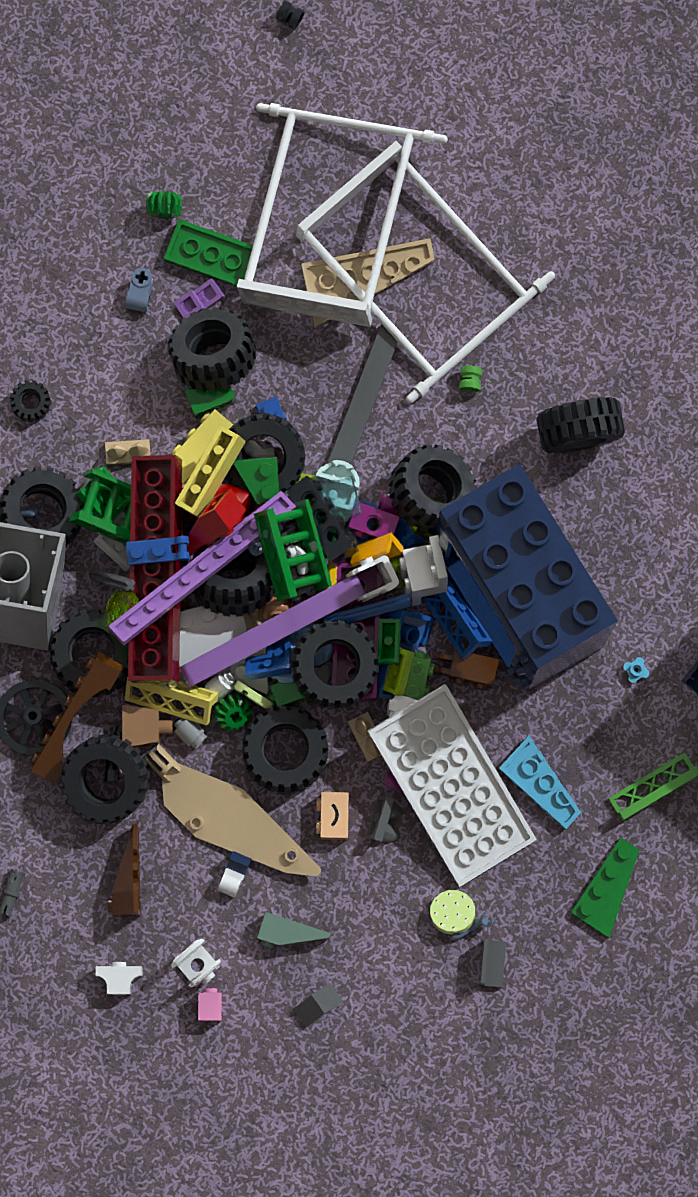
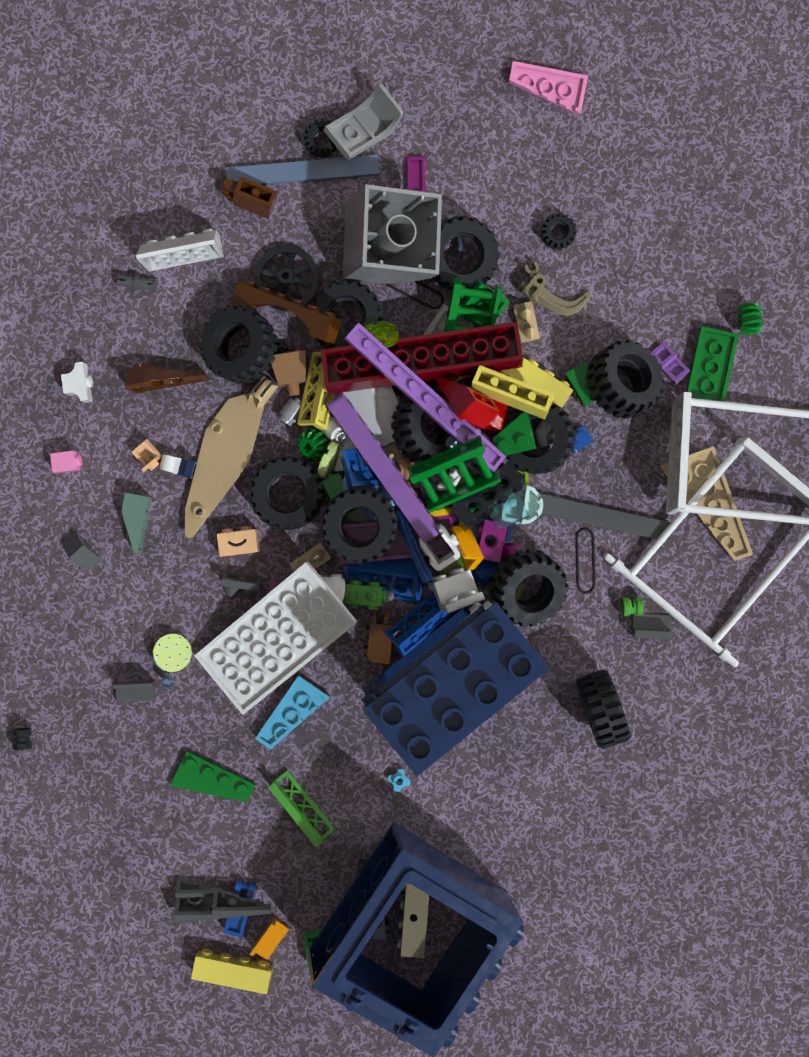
camera: 80 degrees right, 10 degrees up
(82, 572) = (425, 304): none -> black piece
(97, 434) = (539, 294): none -> dark tan piece
(112, 579) = (408, 324): dark grey axle -> none
(139, 294) = (666, 310): sand blue piece -> none
(157, 551) = (435, 356): blue plate -> none
(193, 952) = (88, 449): white piece -> none
(217, 908) = (147, 455): none -> light nougat bracket
(389, 641) = (390, 568): green slope -> none
(398, 674) = (366, 580): lime tile -> none
(411, 433) = (593, 560): none -> black piece
(496, 360) = (652, 626): none -> dark grey panel
(530, 1105) = (21, 739): none -> black wheel

